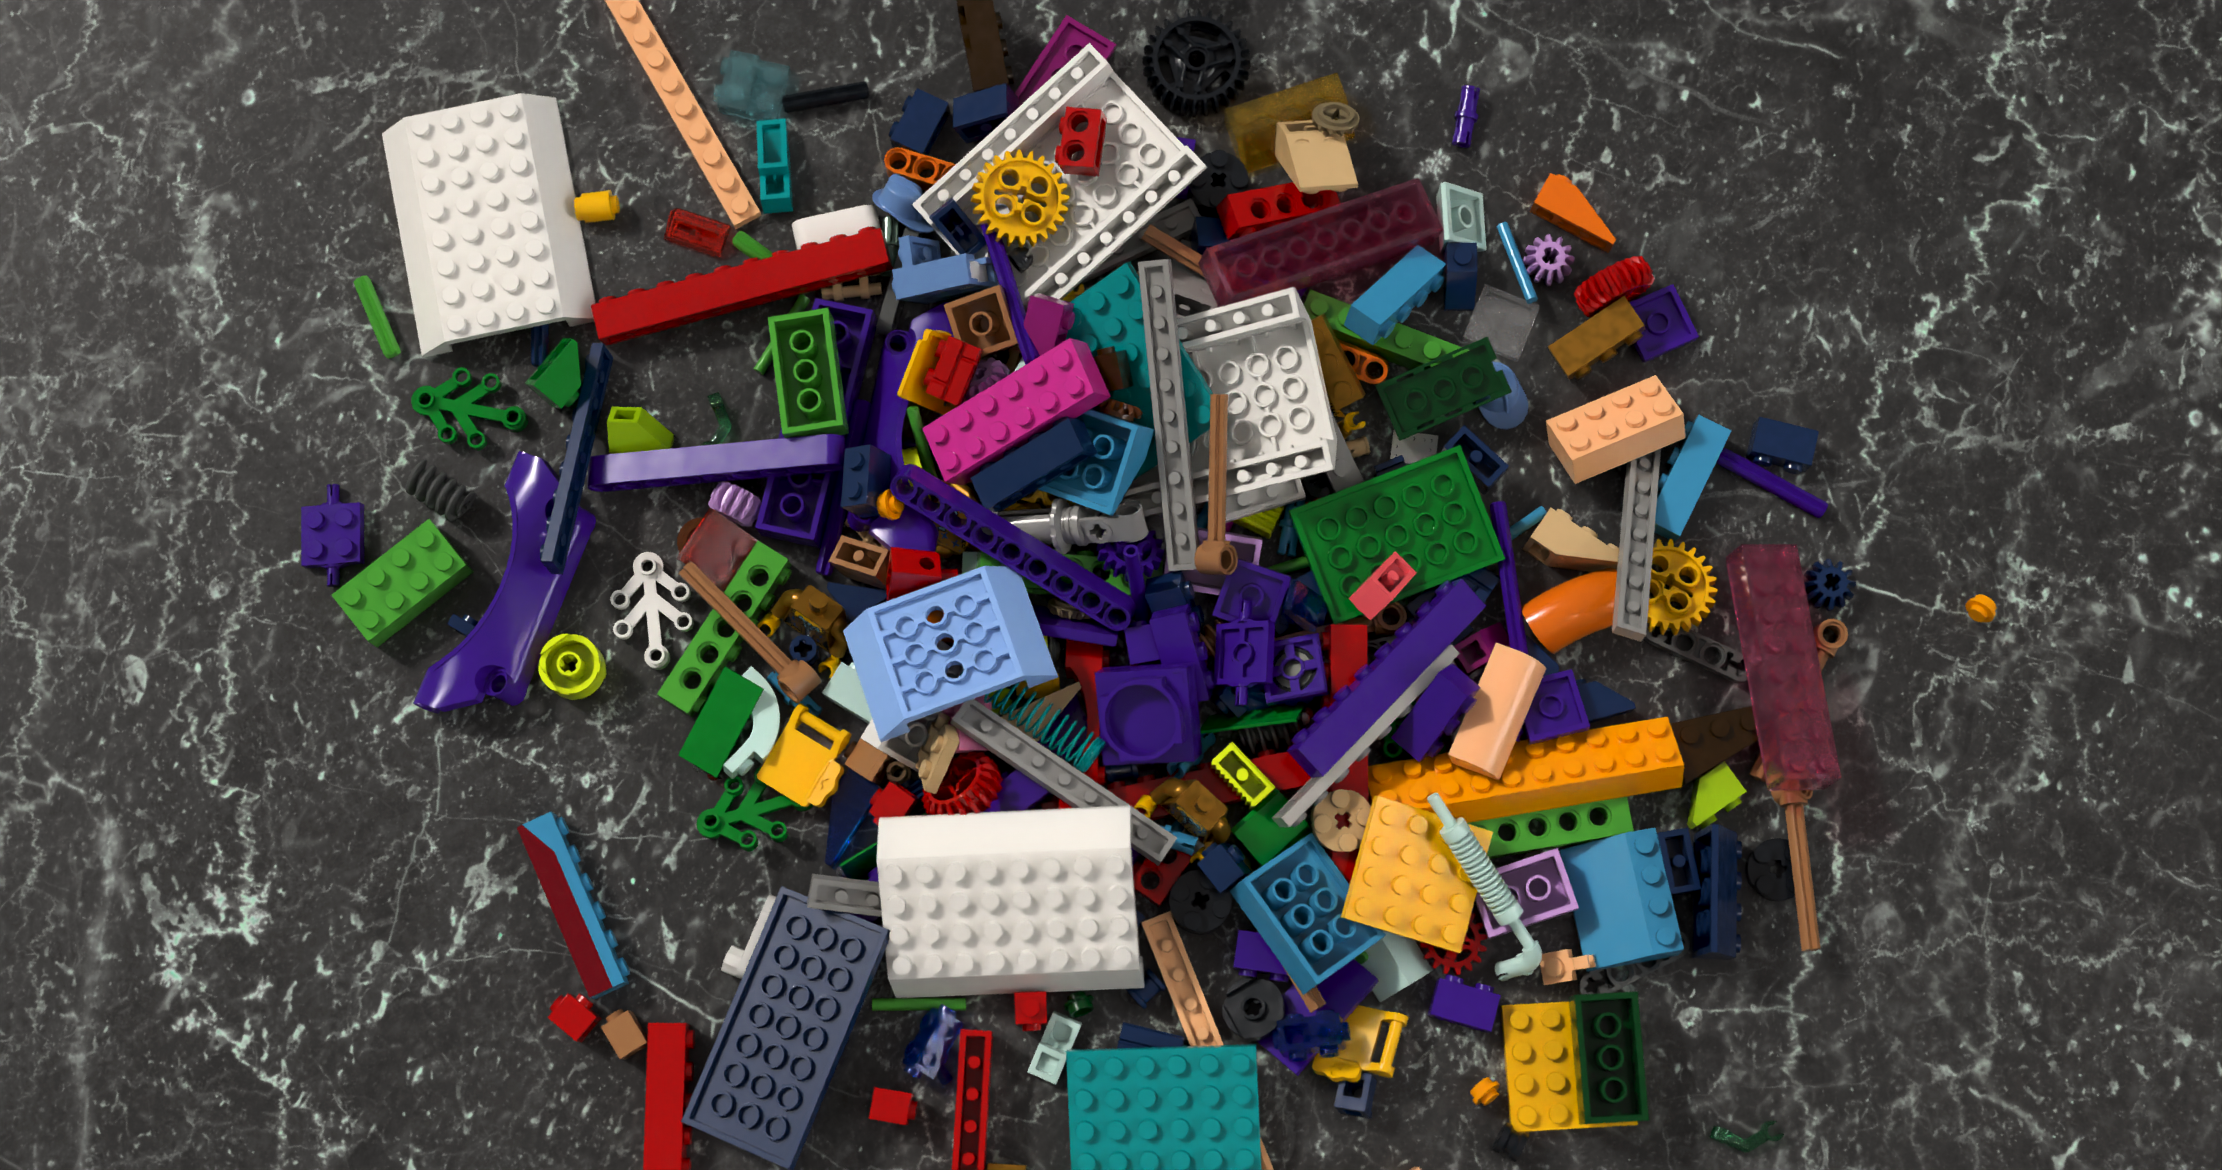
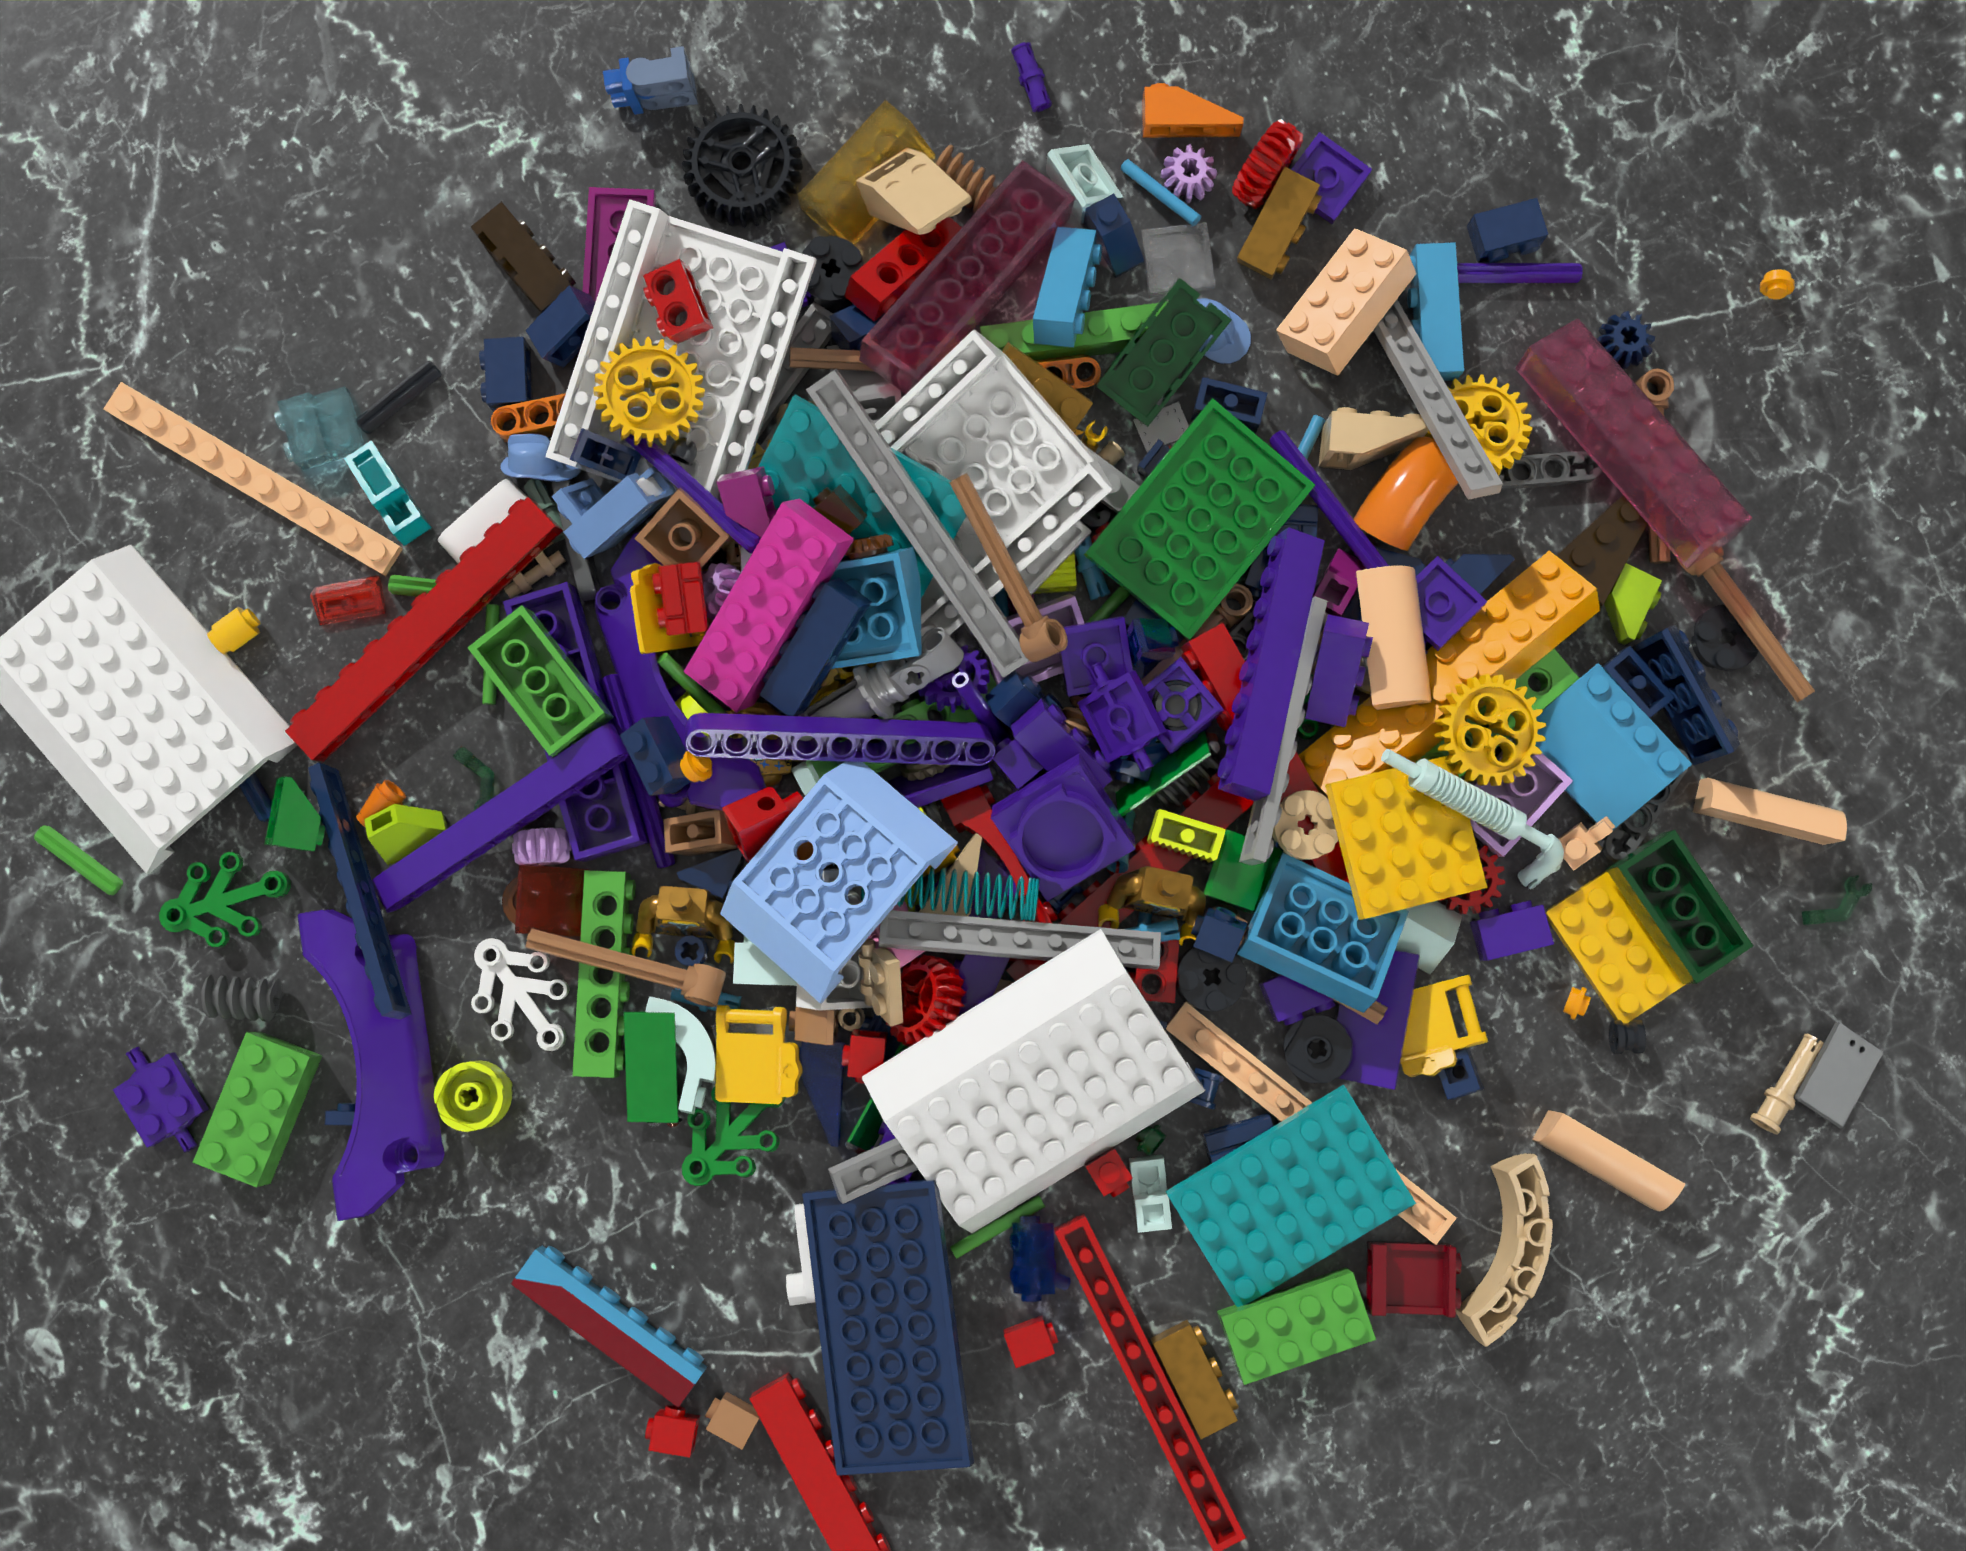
camera: 30 degrees left, 5 degrees up
(634, 397) = (381, 798): none -> orange cone
(1321, 1034) = (1399, 1039): clear blue brick -> none
(1325, 113) = (898, 147): dark tan gear -> none
(1364, 166) = (969, 181): none -> medium nougat piece
(1382, 585) = (1216, 577): coral slope -> none
(1554, 810) = (1500, 702): none -> yellow gear
(1730, 1027) = (1770, 812): none -> light nougat brick

